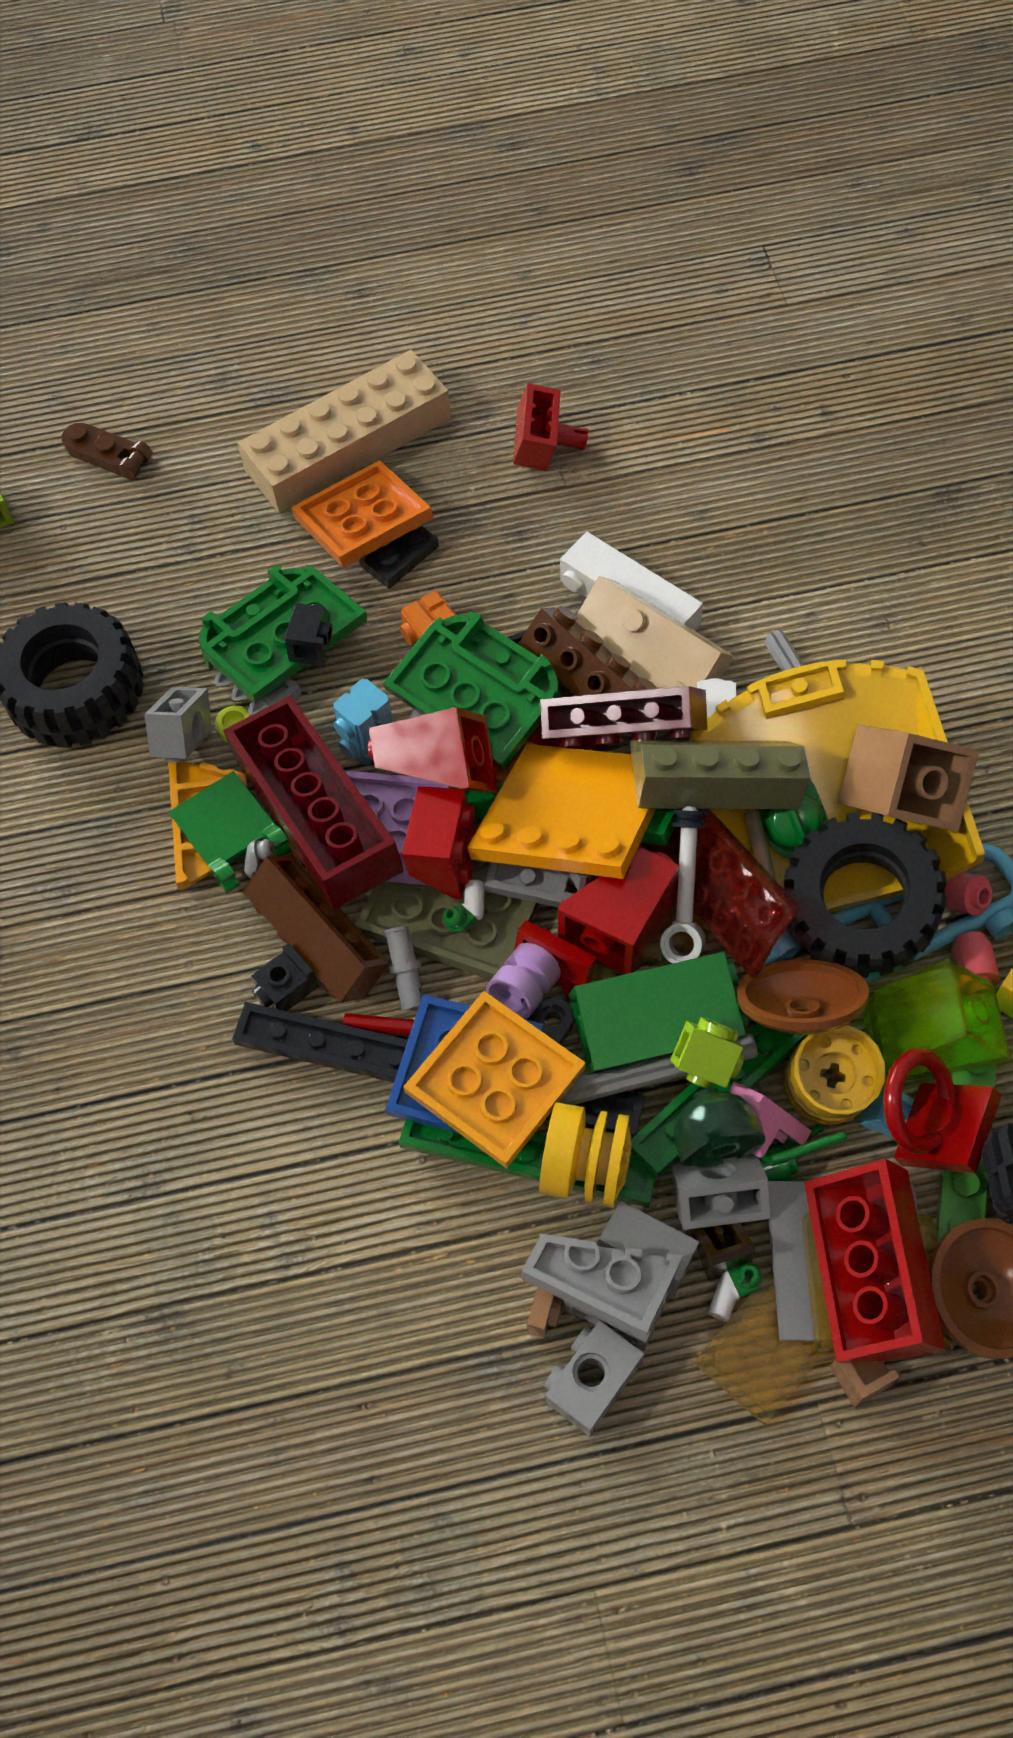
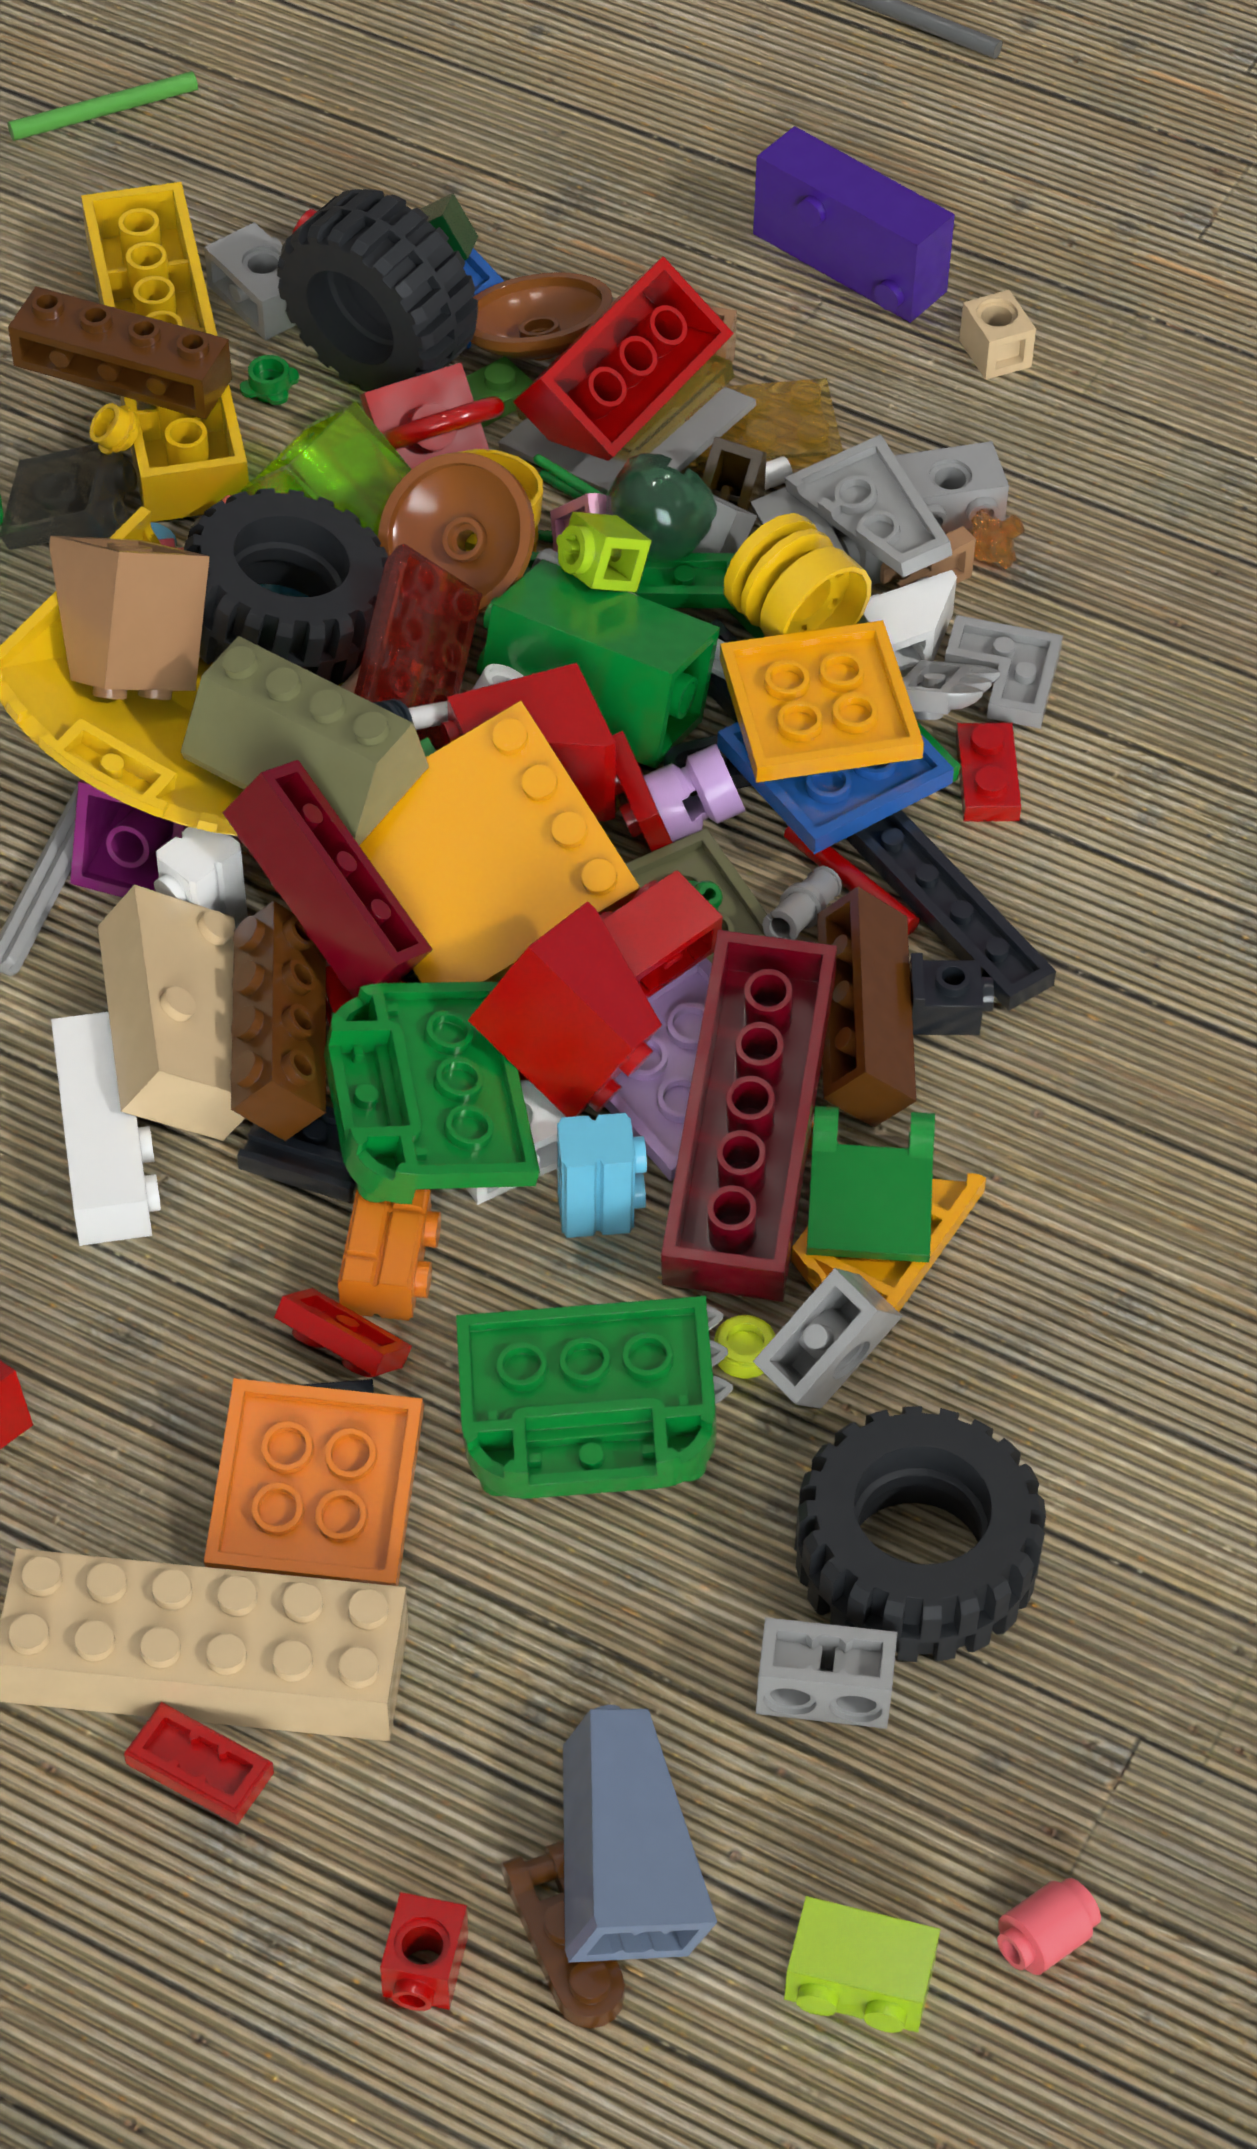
camera: 145 degrees left, 10 degrees down
(67, 582) = (826, 1672): none -> light grey brick
(93, 470) = (626, 1846): none -> sand blue slope
(152, 399) = (417, 1926): none -> red brick
(255, 855) = (870, 1118): light grey arm -> none
(292, 398) = (199, 1763): none -> red plate
(308, 635) = (570, 1298): black brick -> none
(387, 1168) = (988, 772): none -> red plate
(409, 585) = (328, 1324): none -> red plate
(433, 1267) = (1022, 656): none -> light grey plate
(454, 1186) = (946, 686): none -> light grey plate
(517, 1225) = (915, 617): none -> white slope
(528, 1359) = (995, 538): none -> clear orange plant
(669, 1580) = (997, 334): none -> tan brick
(881, 1581) = (853, 223): none -> dark purple brick

